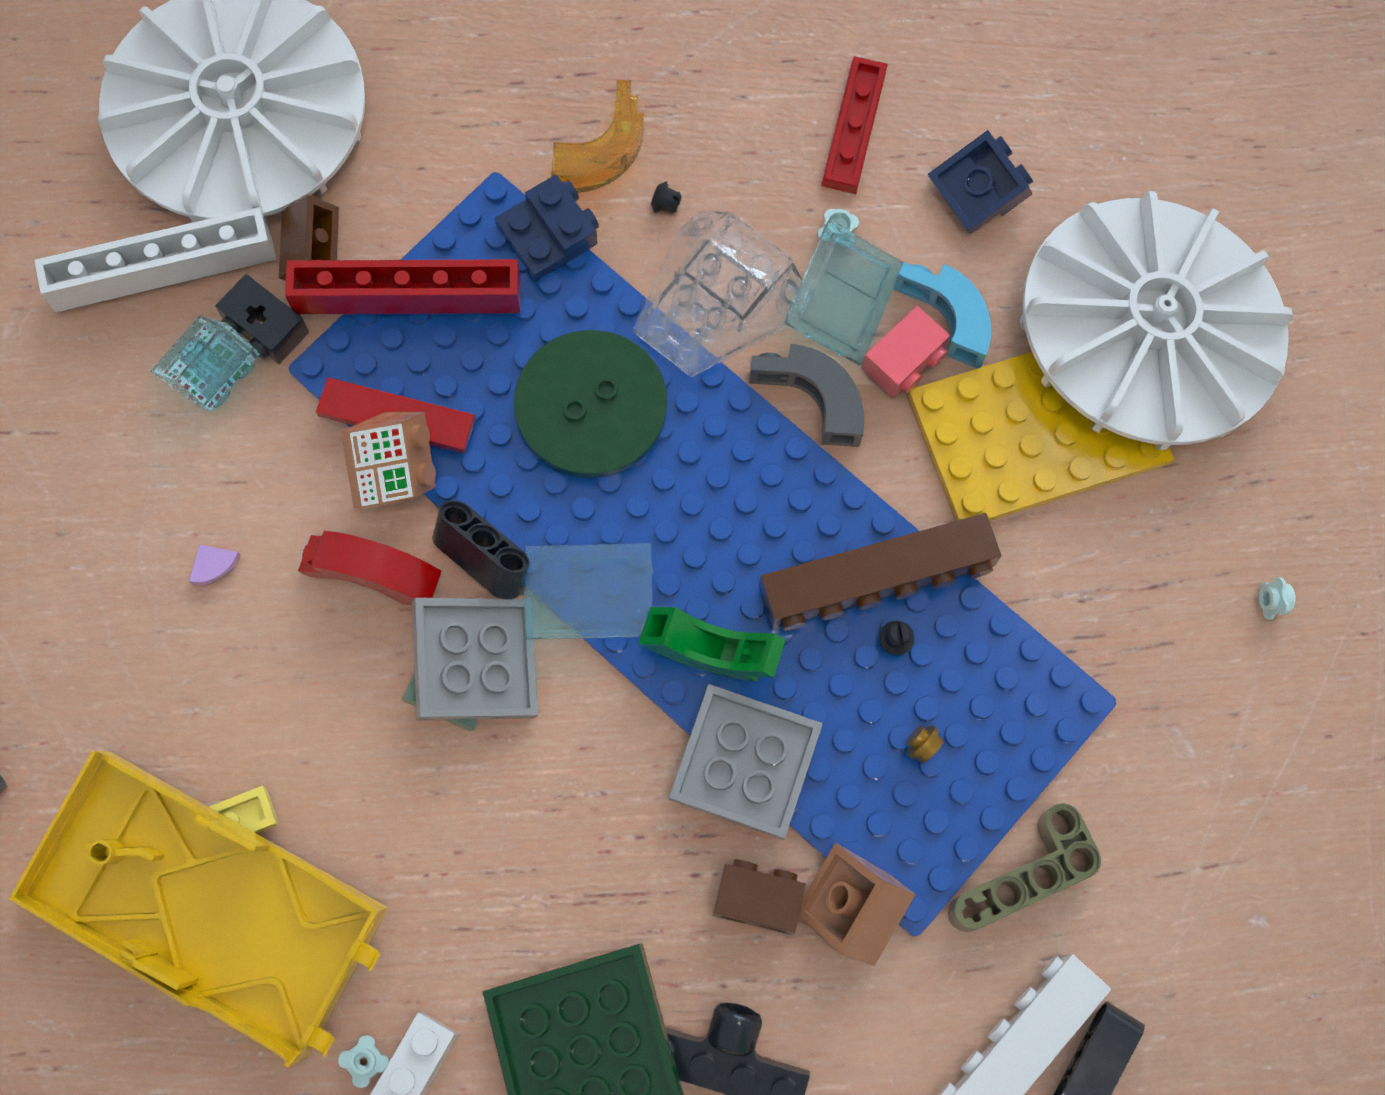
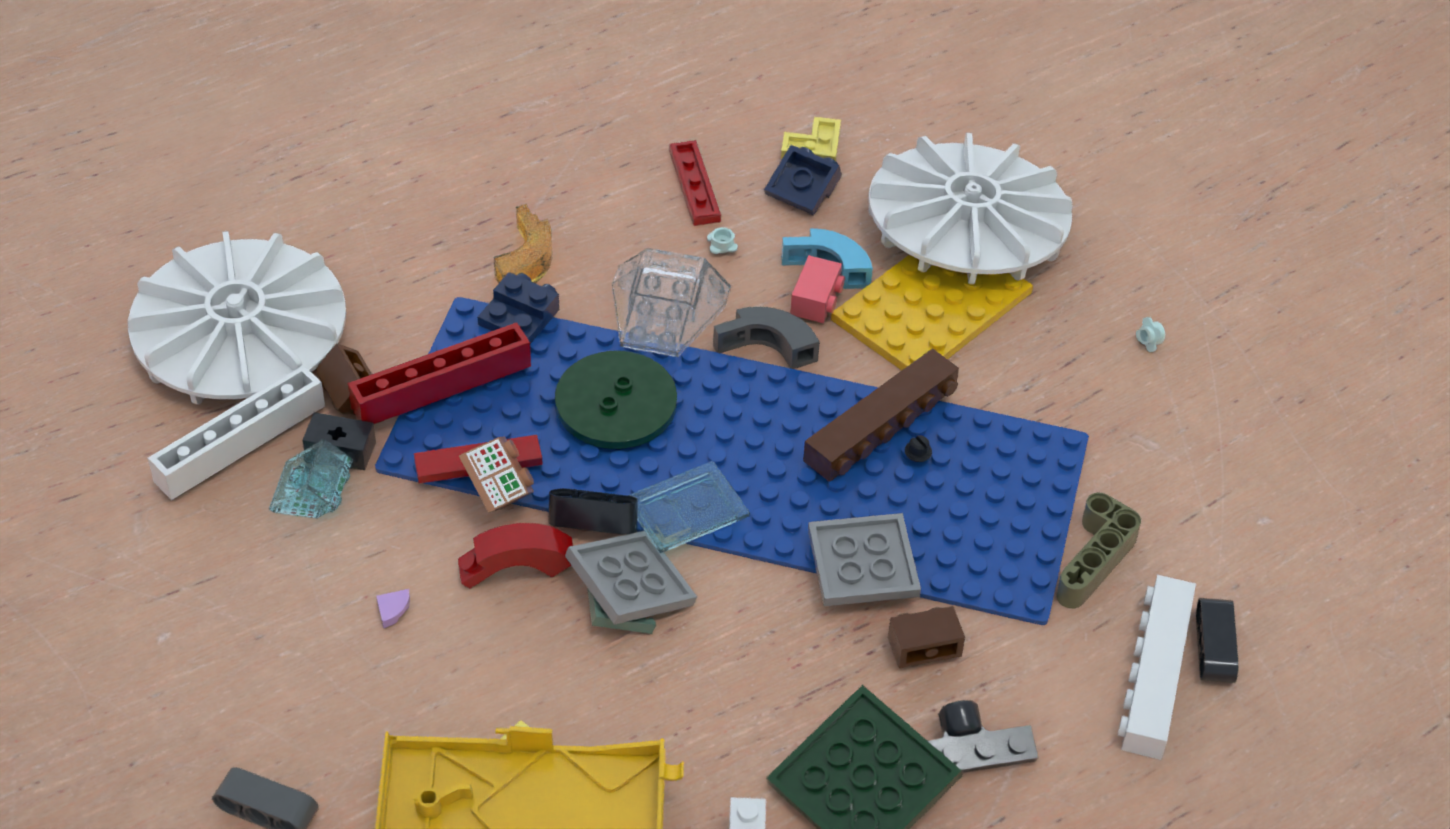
camera: 25 degrees left, 25 degrees down
(665, 199) = (590, 268): black piece -> none
(711, 647) = (797, 503): green arch -> none
(844, 293) = (751, 272): clear light blue piece -> none
(855, 905) = (995, 610): nougat slope -> none
(924, 743) = (977, 499): pearl gold plate -> none
(1030, 137) = (822, 141): none -> light yellow plate

